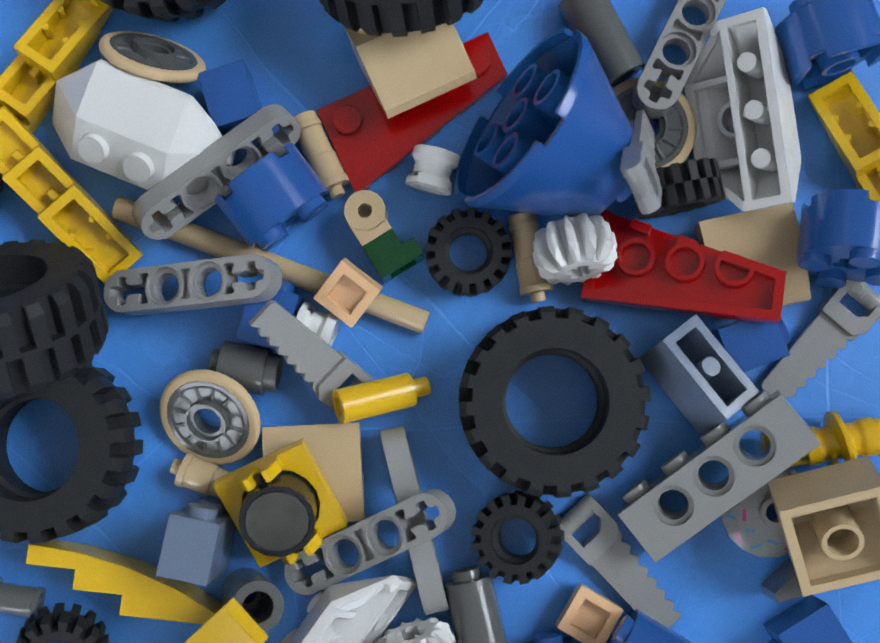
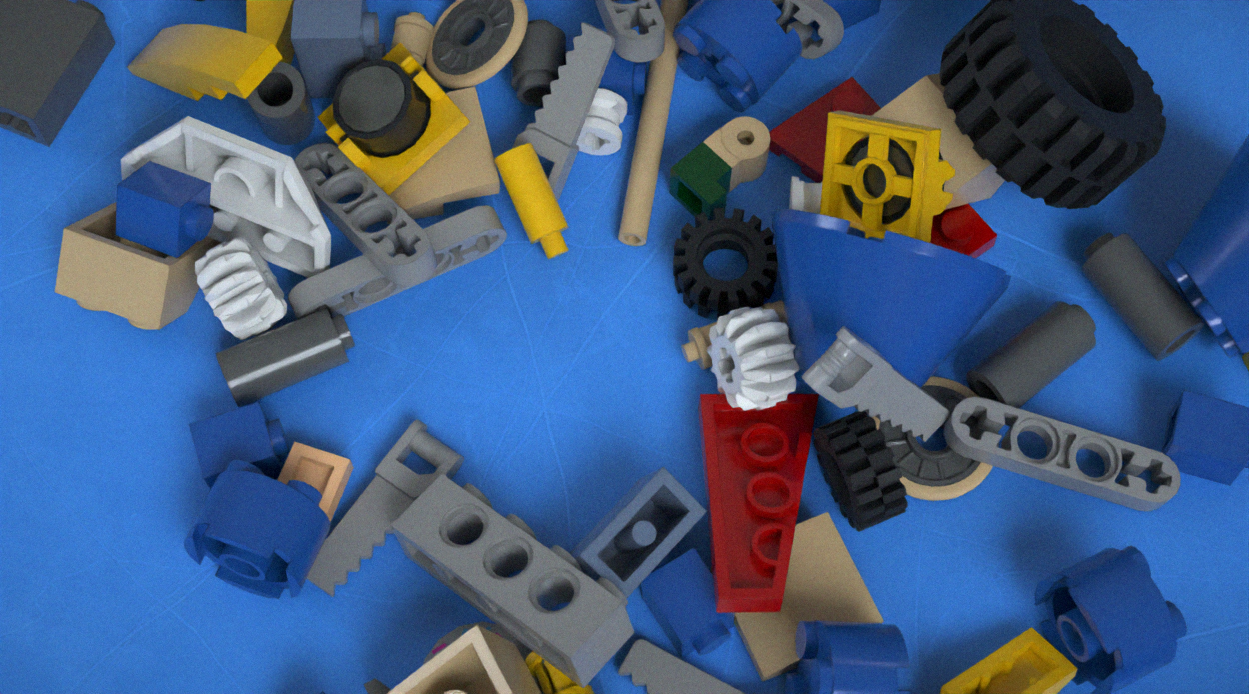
camera: 80 degrees right, 20 degrees down
(320, 154) = (801, 89): tan piece -> none
(348, 292) = (645, 137): light nougat plate -> none
(451, 107) = (885, 177): none -> yellow piece
(497, 557) = (391, 351): black tyre -> none
(617, 416) = (553, 307): black tyre -> none
(746, 112) = (983, 545): white wedge -> none

